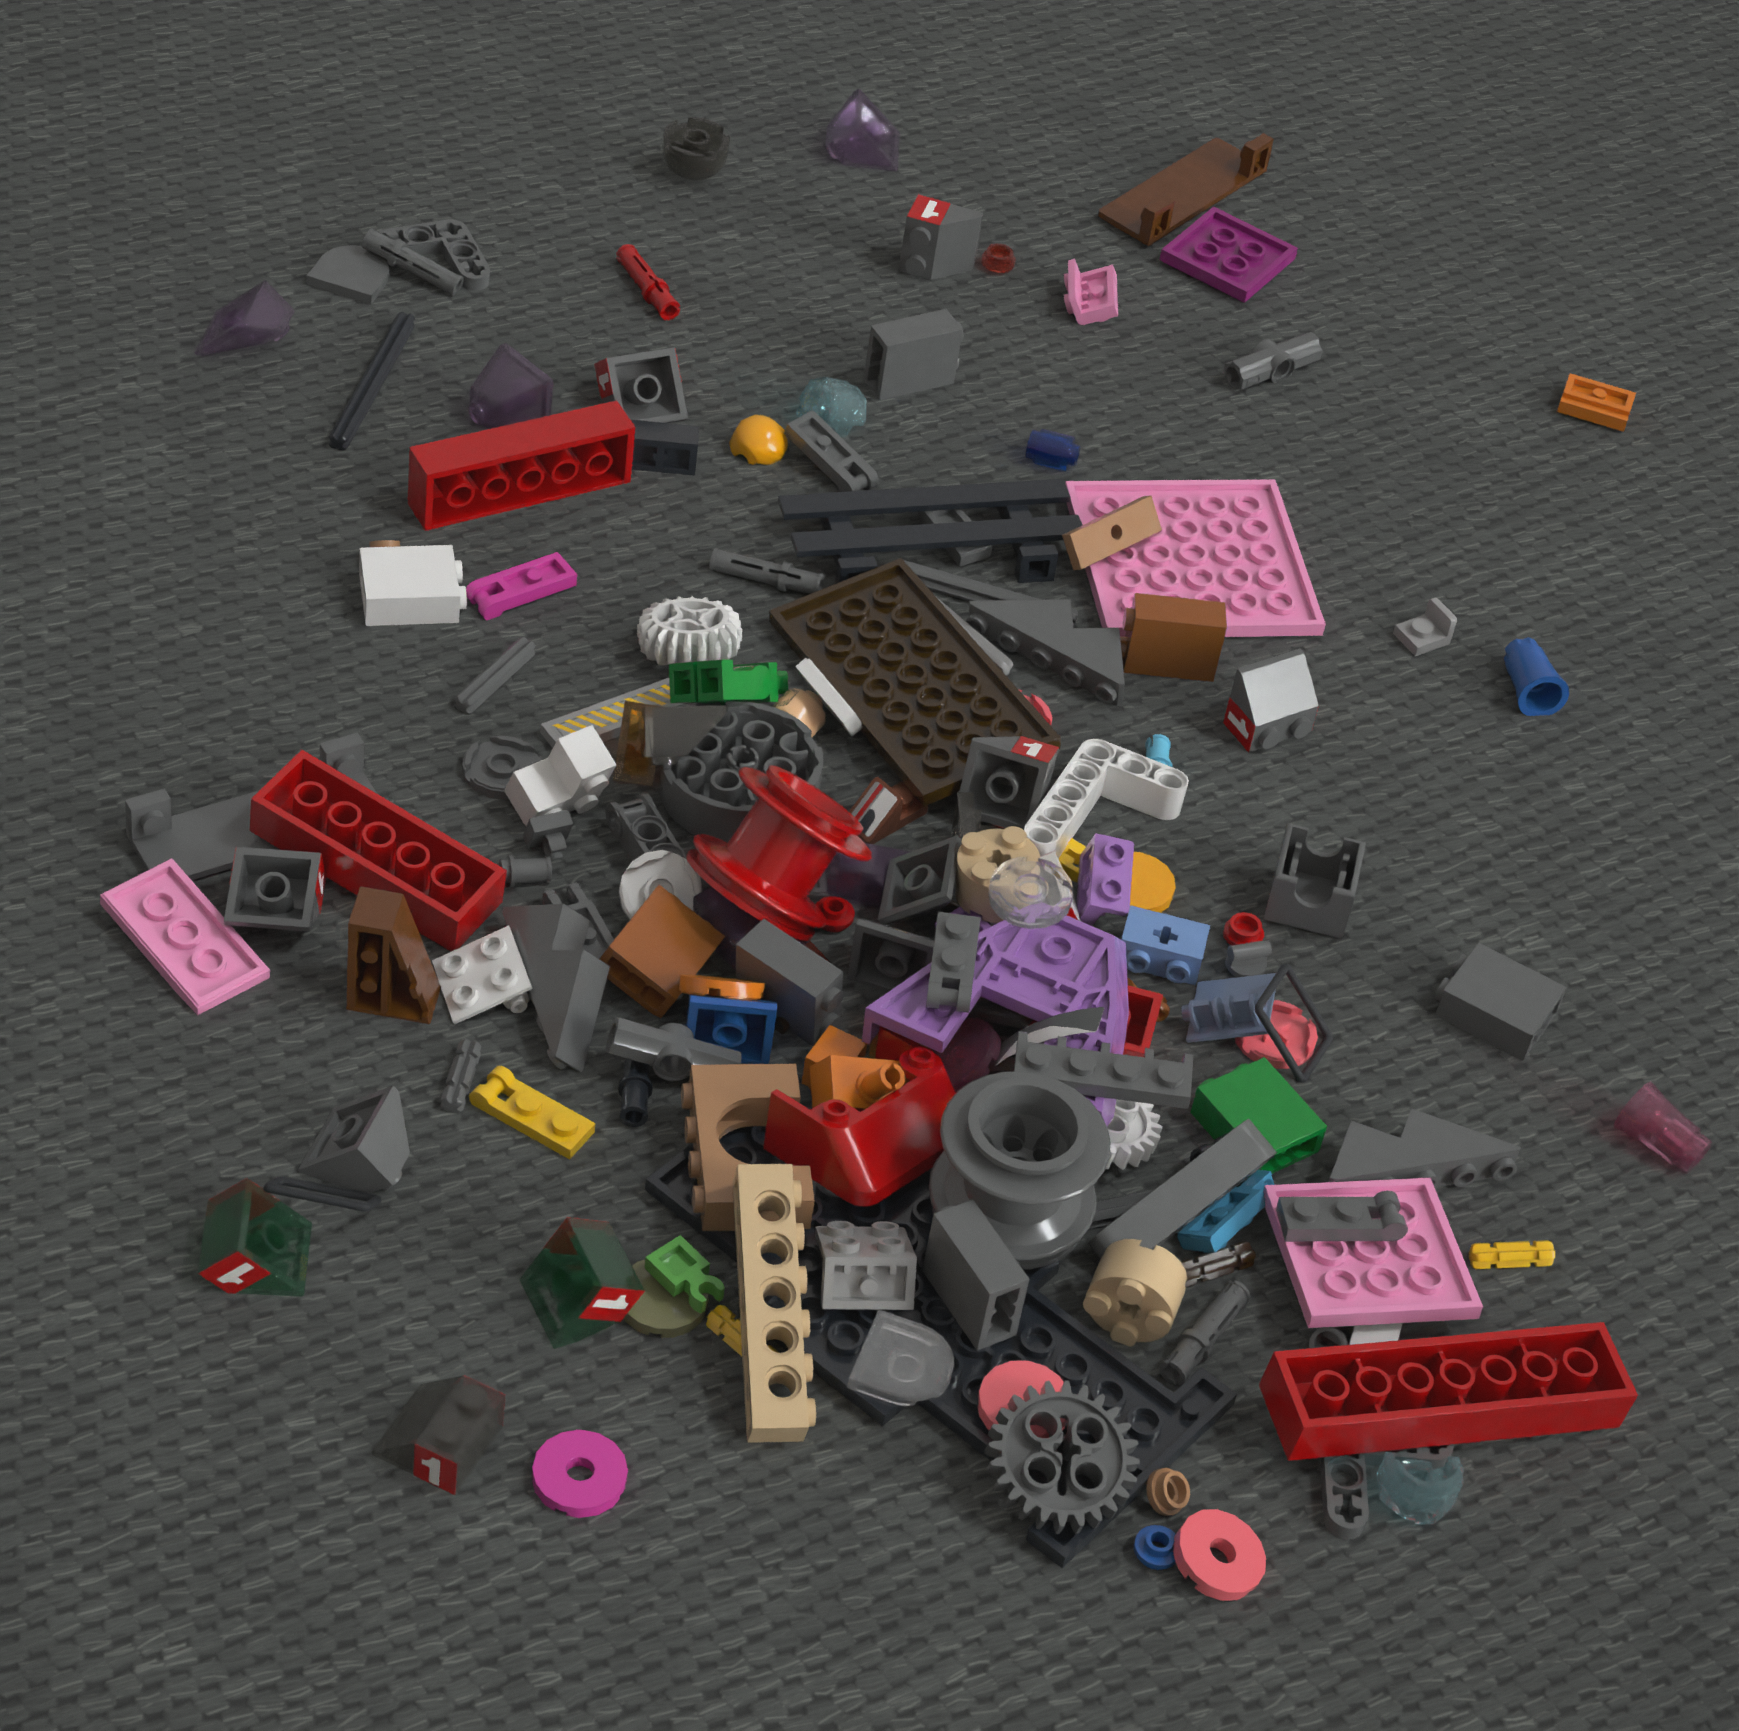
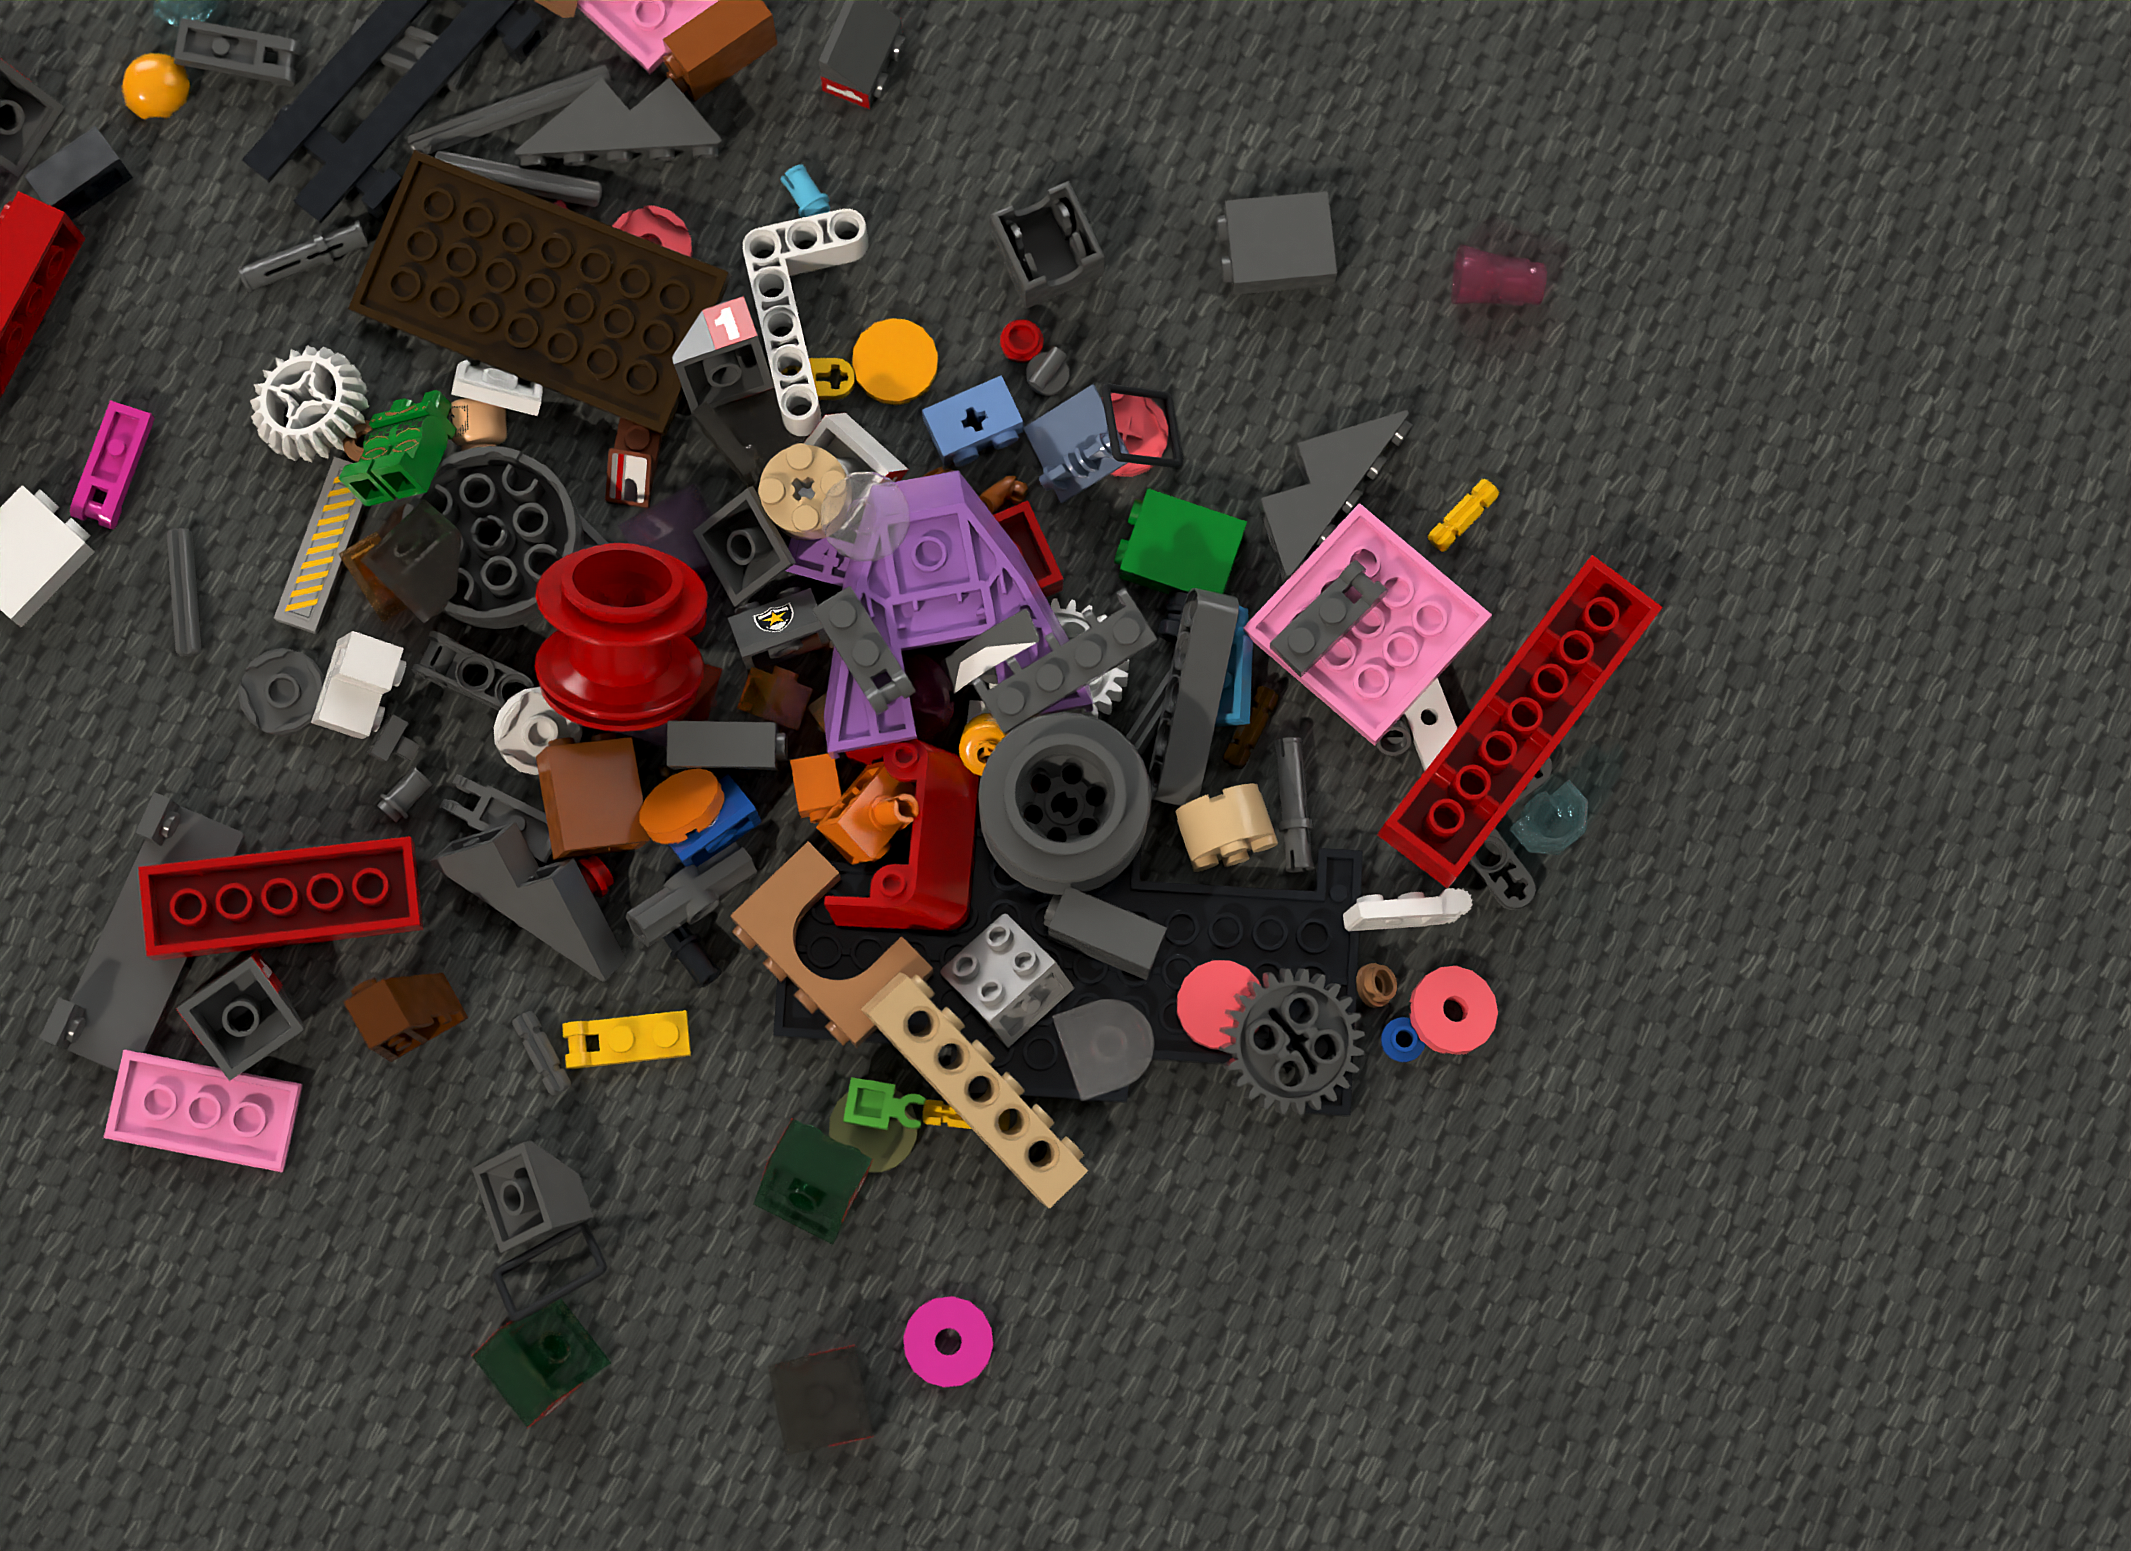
camera: 35 degrees left, 35 degrees up
(483, 976) = (471, 941): white hinge -> none
(613, 1001) = (595, 875): none -> red plate
(862, 985) = (775, 696): none -> clear orange brick
(1104, 878) = (880, 398): medium lavender bracket -> none
(1240, 1453) = (1408, 910): none -> white hinge

